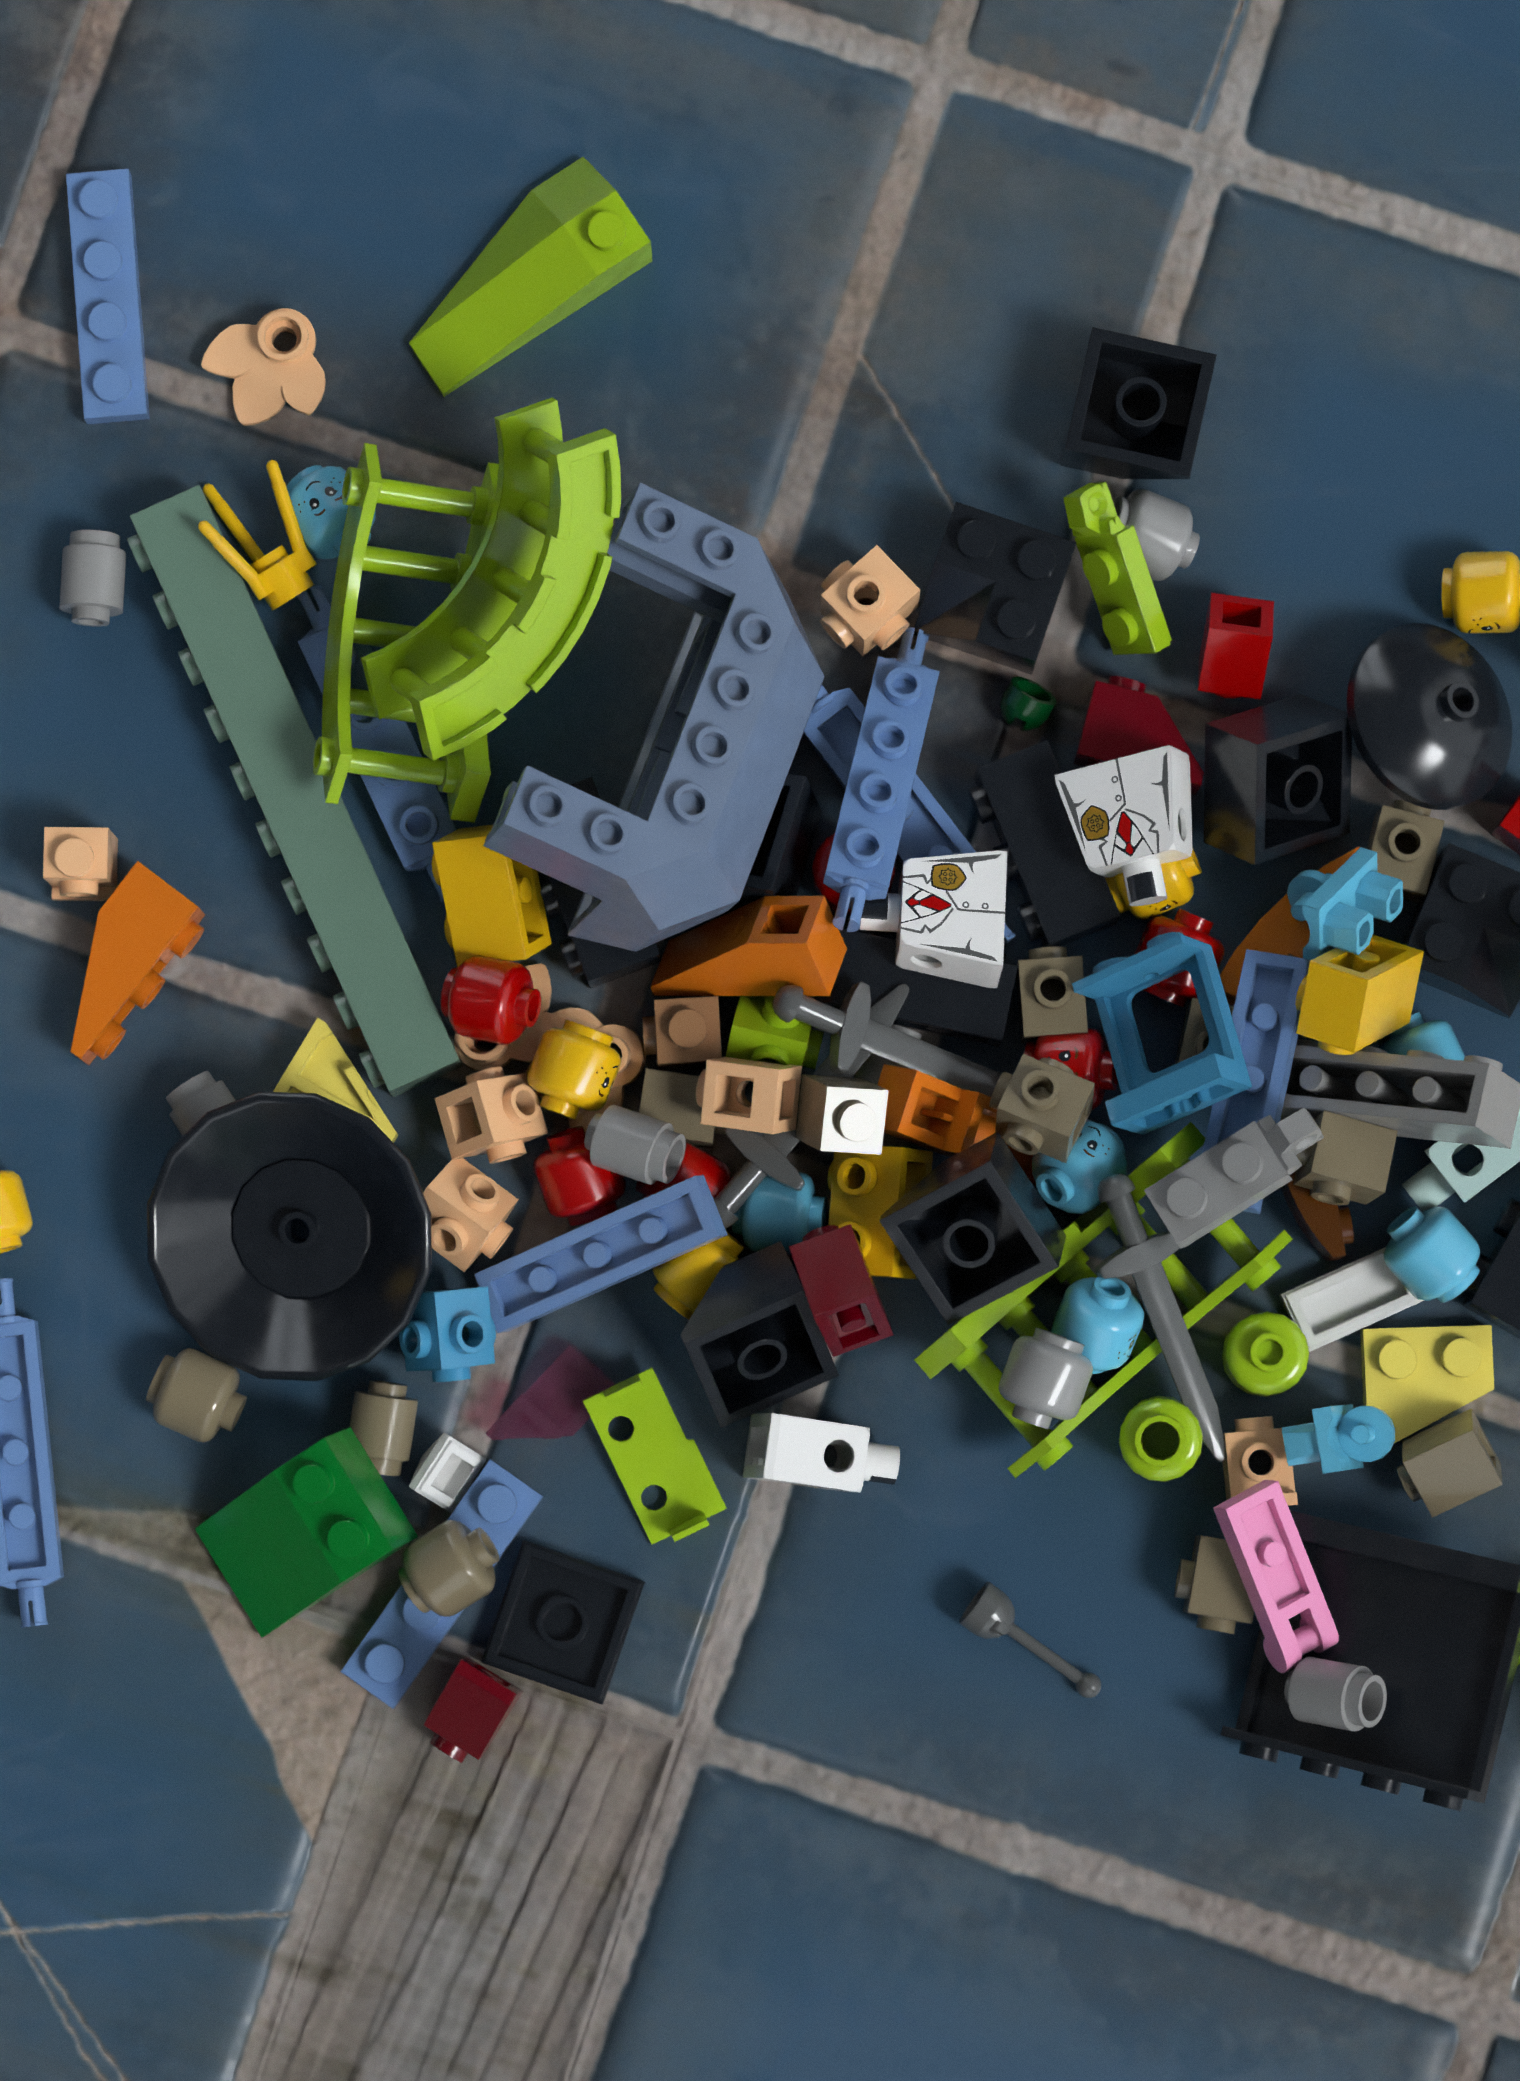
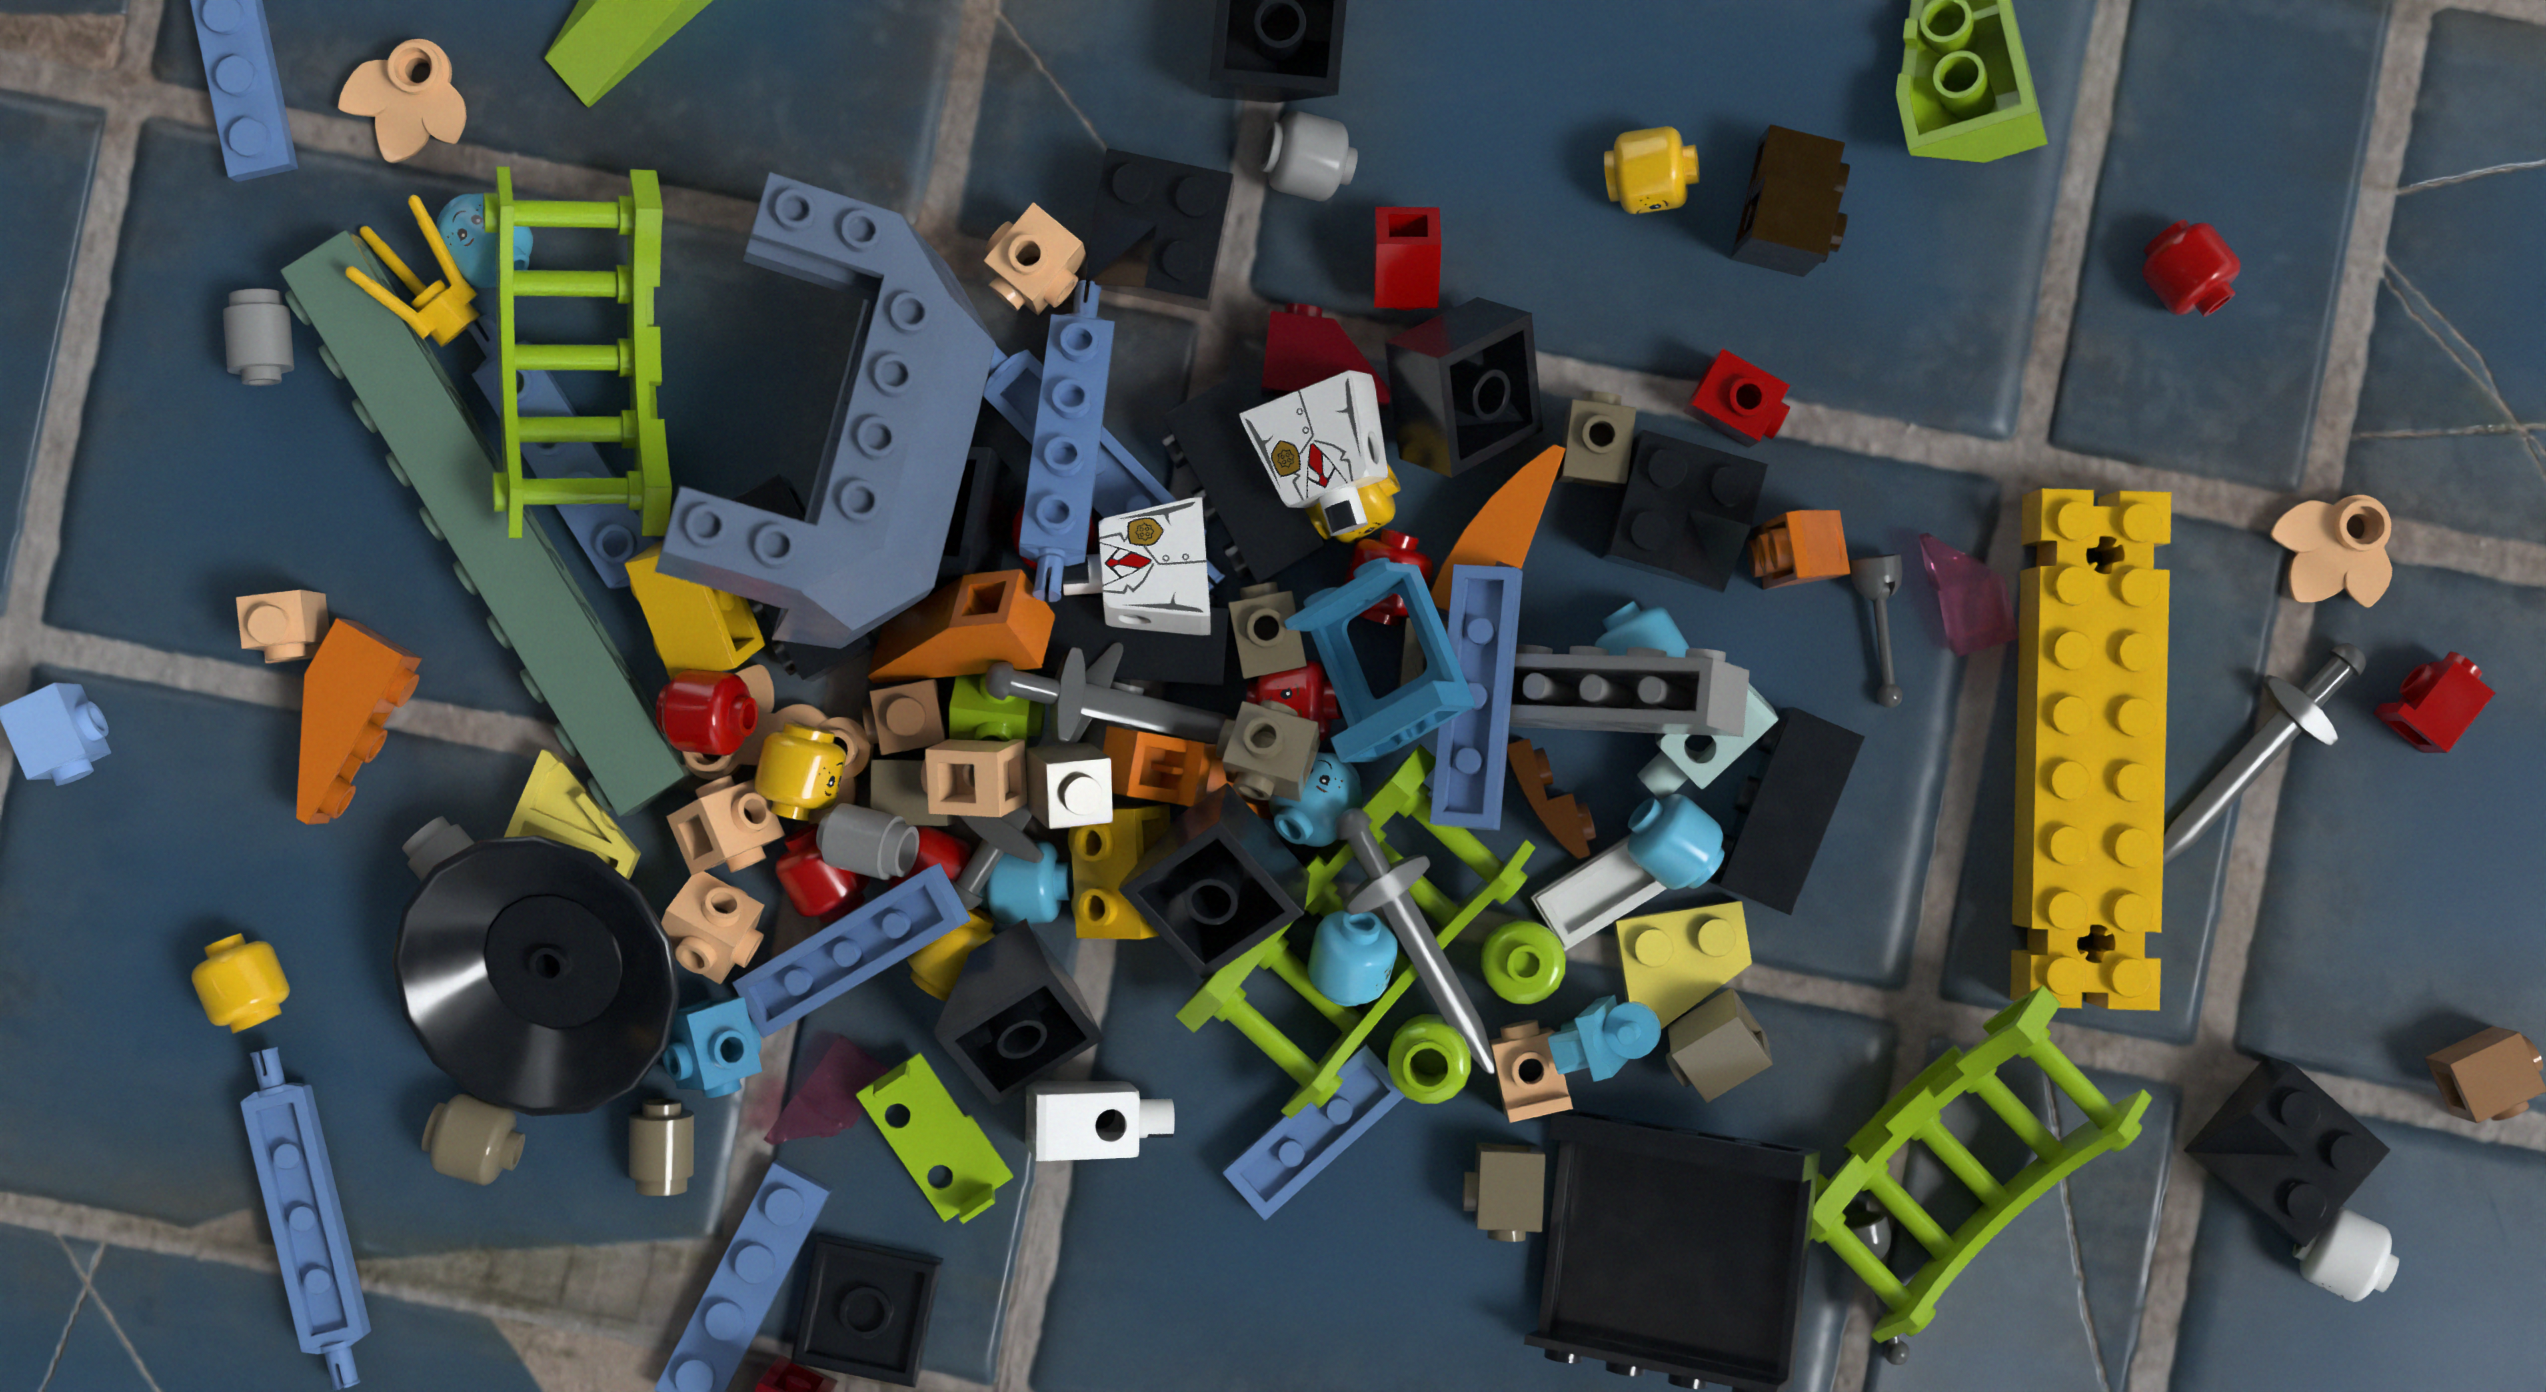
camera: 10 degrees left, 5 degrees up
(305, 1531) = (600, 1259): green slope -> none
(446, 1472) = (731, 1181): white slope -> none
(449, 1568) = (740, 1283): dark tan head -> none
(522, 593) = (672, 303): lime fence -> none
(840, 1289) = (1088, 960): dark red slope -> none
(993, 1615) = (1286, 1250): dark grey hinge -> none
(1027, 702) = (1206, 340): dark green hinge -> none
(1035, 1501) = (1302, 1146): none -> medium blue plate
(1045, 1378) = (1306, 1022): light grey head -> none
(1116, 573) = (1277, 198): lime hinge -> none
(1232, 1175) = (1466, 799): light grey hinge -> none
(1276, 1574) = (1559, 1182): bright pink plate -> none
(1335, 1694) = (1632, 1295): light grey brick -> none
(1344, 904) = (1544, 507): medium azure hips -> none
(1348, 1161) = (1575, 762): dark tan brick -> none
(1360, 997) = (1570, 595): yellow brick -> none
(1429, 716) = (1591, 317): black dish -> none

